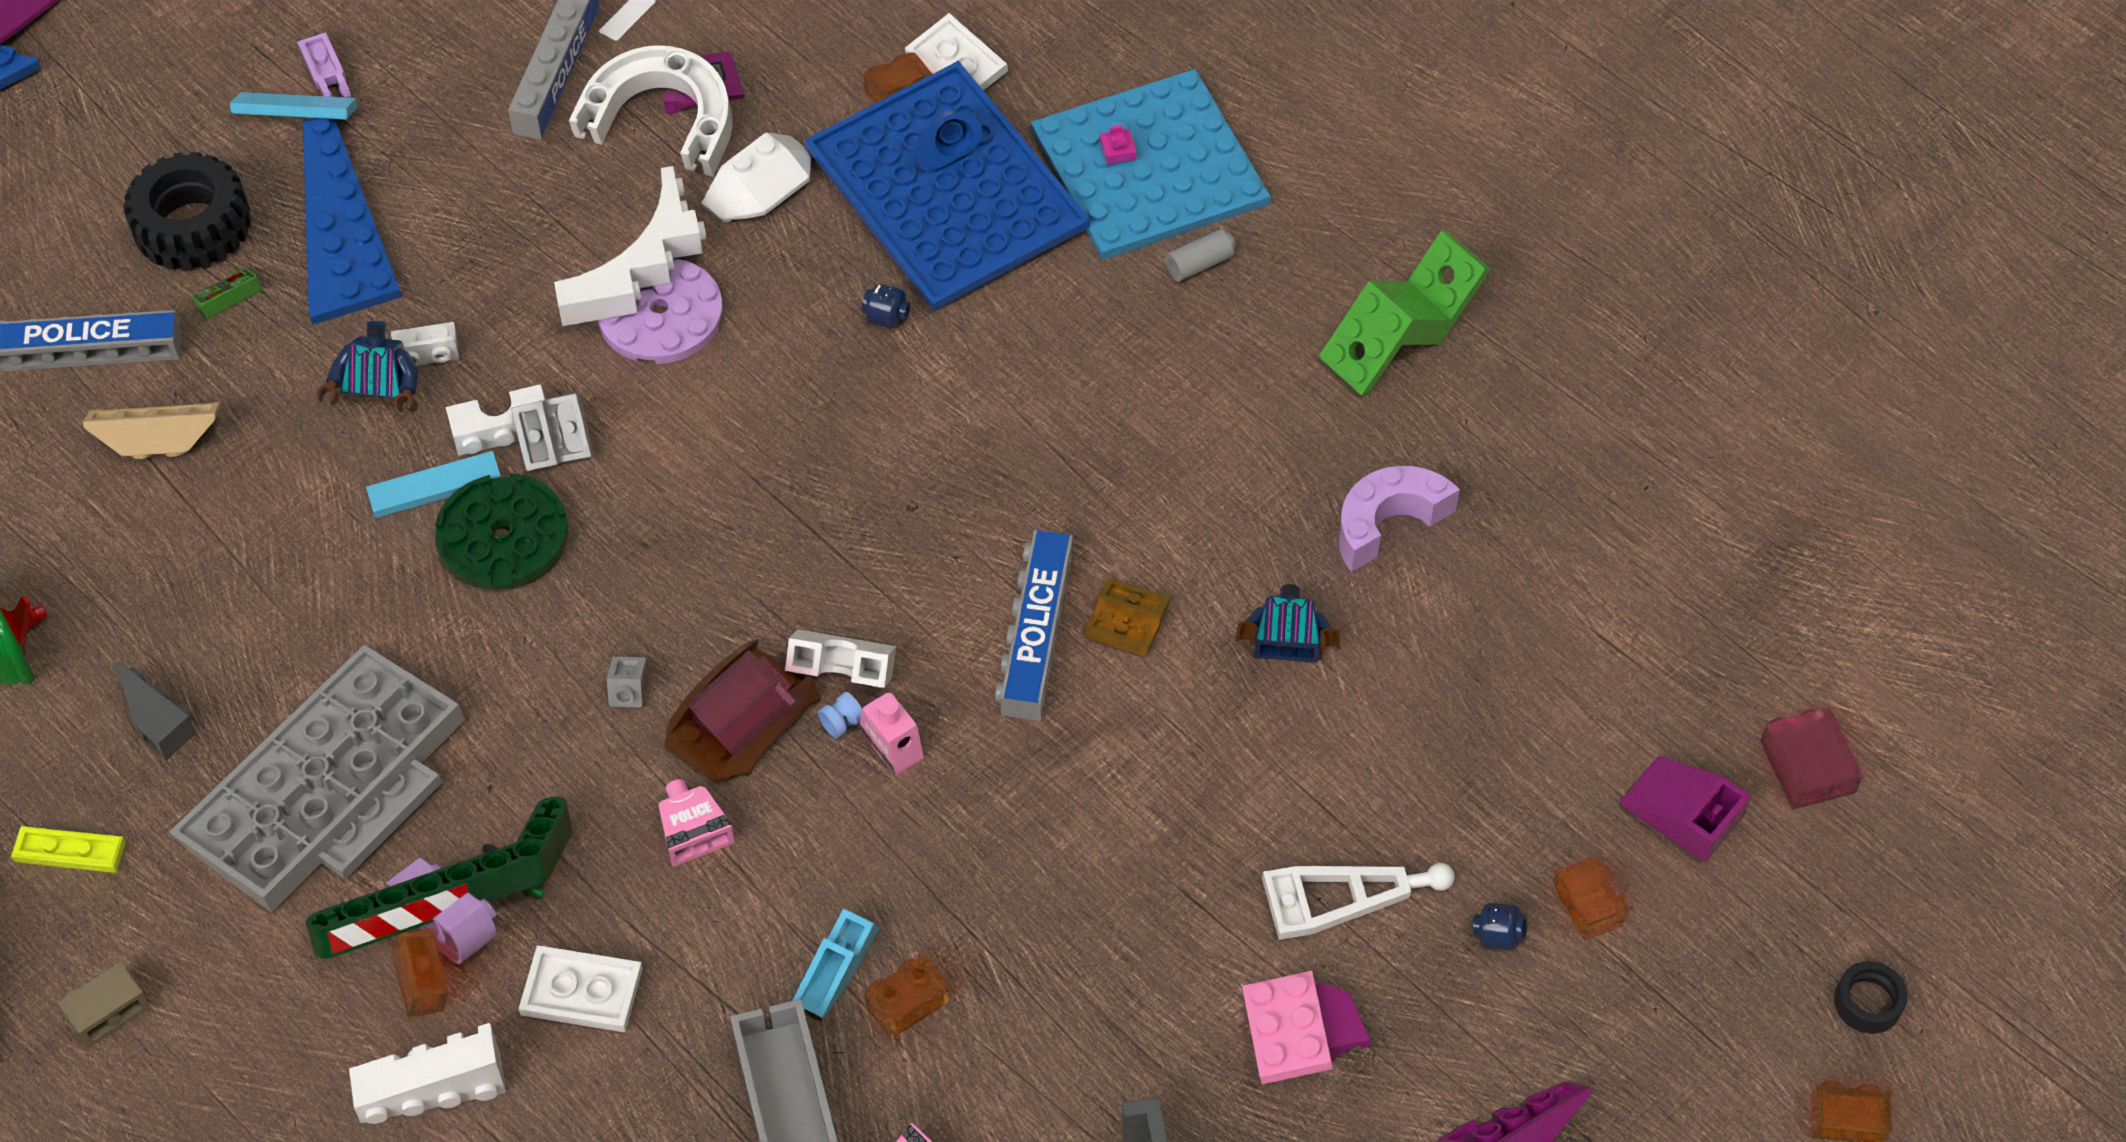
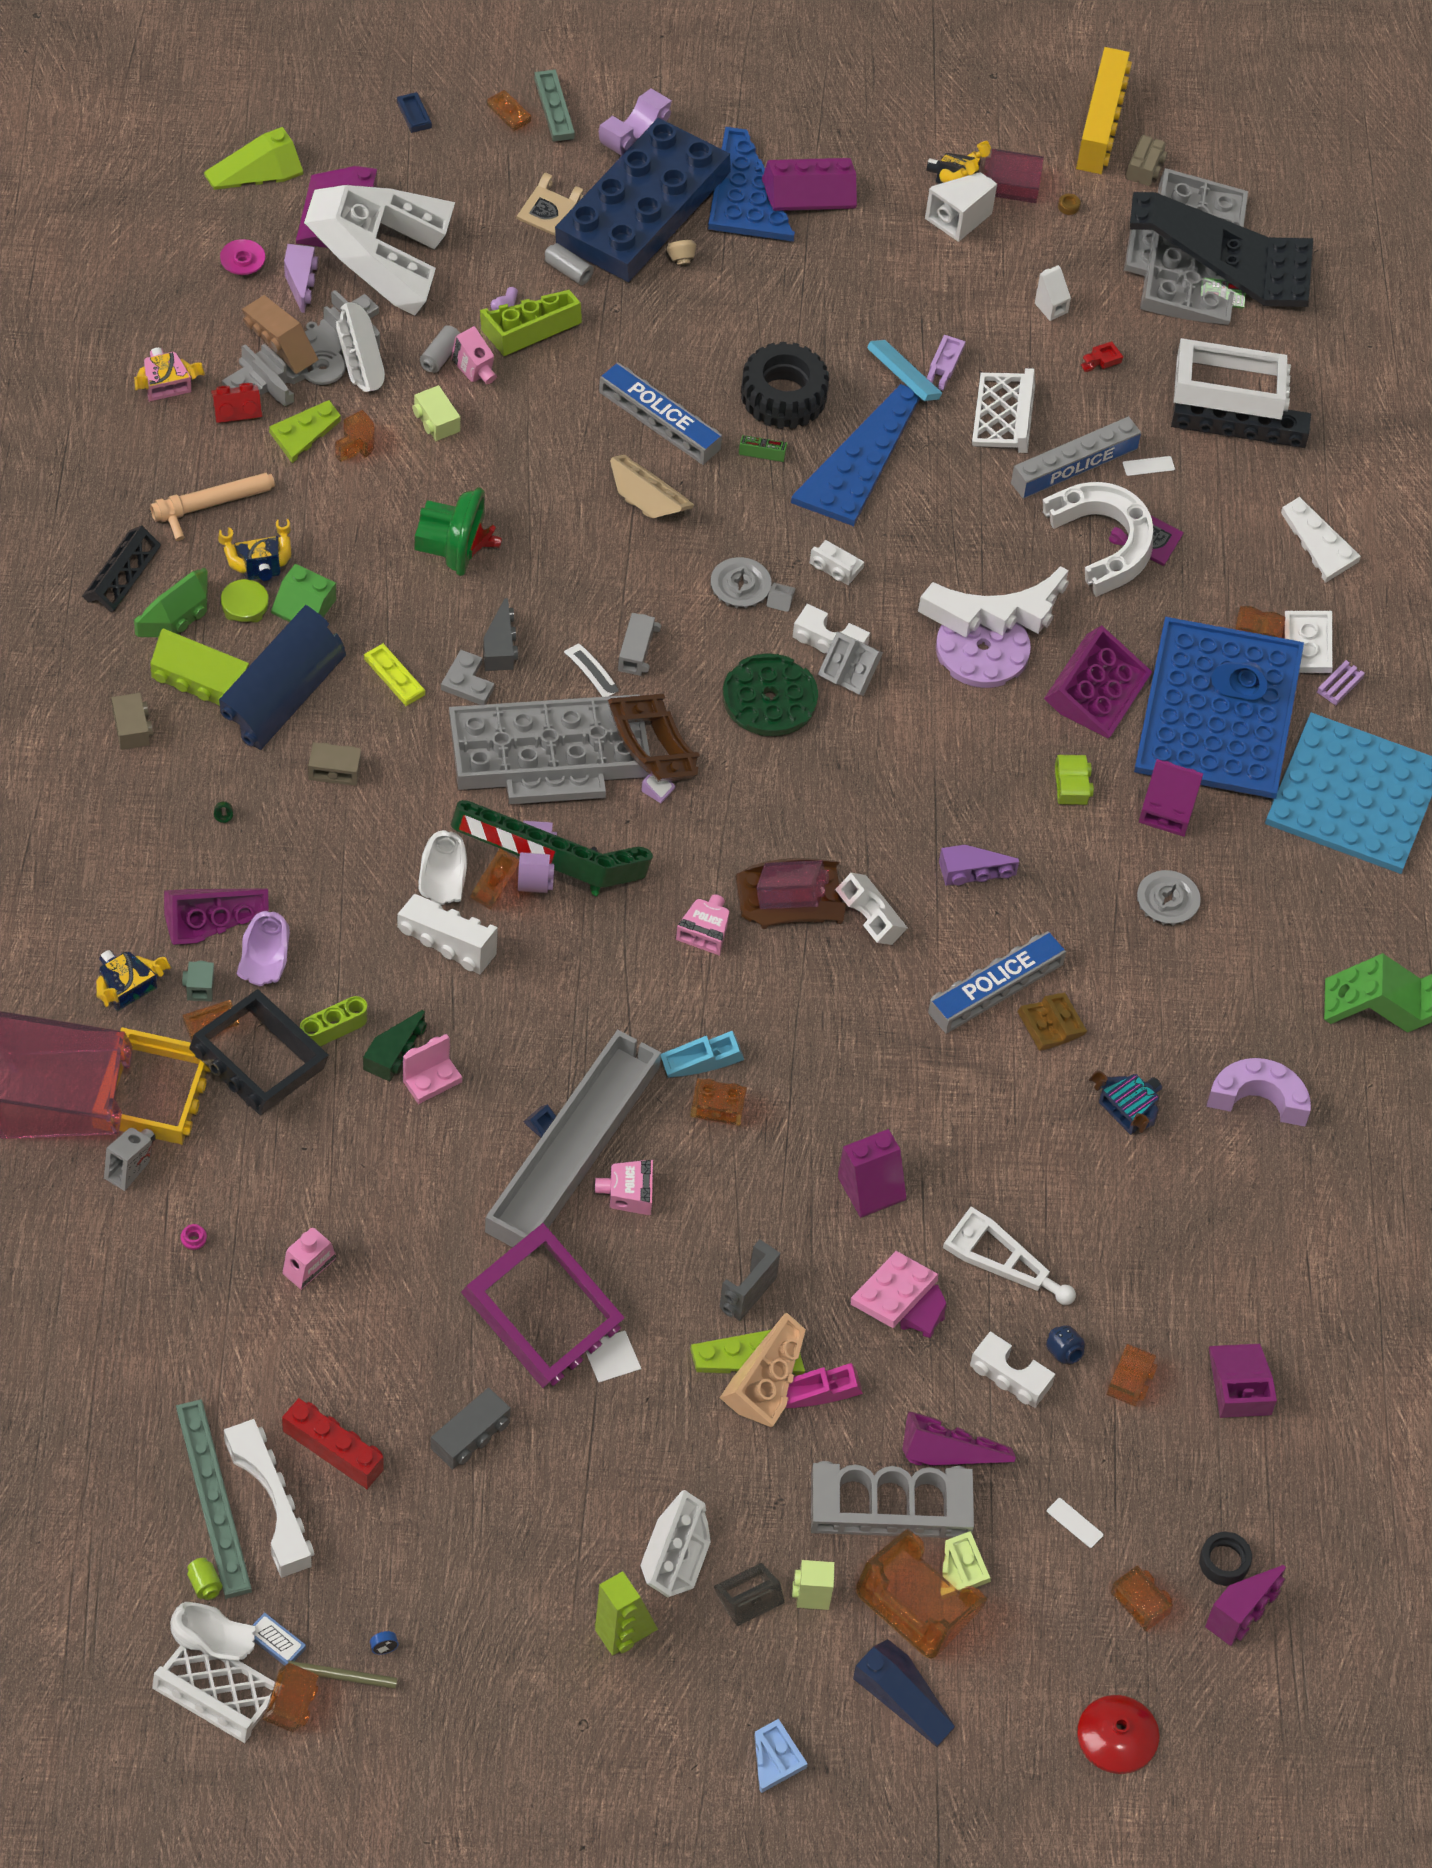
camera: 40 degrees right, 0 degrees up
(156, 793) = (463, 682): none -> light grey plate
(284, 661) = (592, 669): none -> sticker
(307, 594) = (637, 644): none -> light grey brick
(350, 1012) = (443, 868): none -> white hair
(356, 426) = (727, 576): none -> light grey gear
(373, 368) = (791, 551): torso -> none
(394, 649) = (681, 760): none -> reddish brown wedge
(404, 426) = (780, 597): none -> light grey slope
(429, 484) = (760, 639): medium azure tile -> none
(449, 48) = (1023, 406): none -> white fence
(484, 722) = (657, 790): none -> slope
(580, 988) = (565, 956): white plate -> none
(626, 681) = (749, 825): light grey bracket -> none
(758, 178) = (1124, 615): white wedge -> none
(808, 253) = (1098, 683): none -> magenta slope
(840, 715) = (841, 938): light blue wheel -> none
(881, 531) = (971, 864): none -> medium lavender slope
(885, 306) = (1107, 746): dark blue head -> none
(887, 724) = (856, 962): bright pink torso -> none
(888, 365) = (1072, 779): none -> lime brick
(1006, 302) = (1170, 797): none -> magenta slope
(1023, 56) = (1350, 671): none -> lavender tile
(1112, 390) = (1159, 886): none -> light grey gear
(1117, 145) = (1342, 765): dark pink tile -> none
(1142, 927) = (873, 1173): none -> magenta slope
(1200, 255) = (1321, 866): light grey brick -> none
(1454, 1010) = (1026, 1384): none -> white arch
(1702, 1099) = (1075, 1522): none -> white sticker
(1811, 758) = (1343, 1419): clear pink brick -> none
(1949, 1035) = (1243, 1604): none -> magenta slope

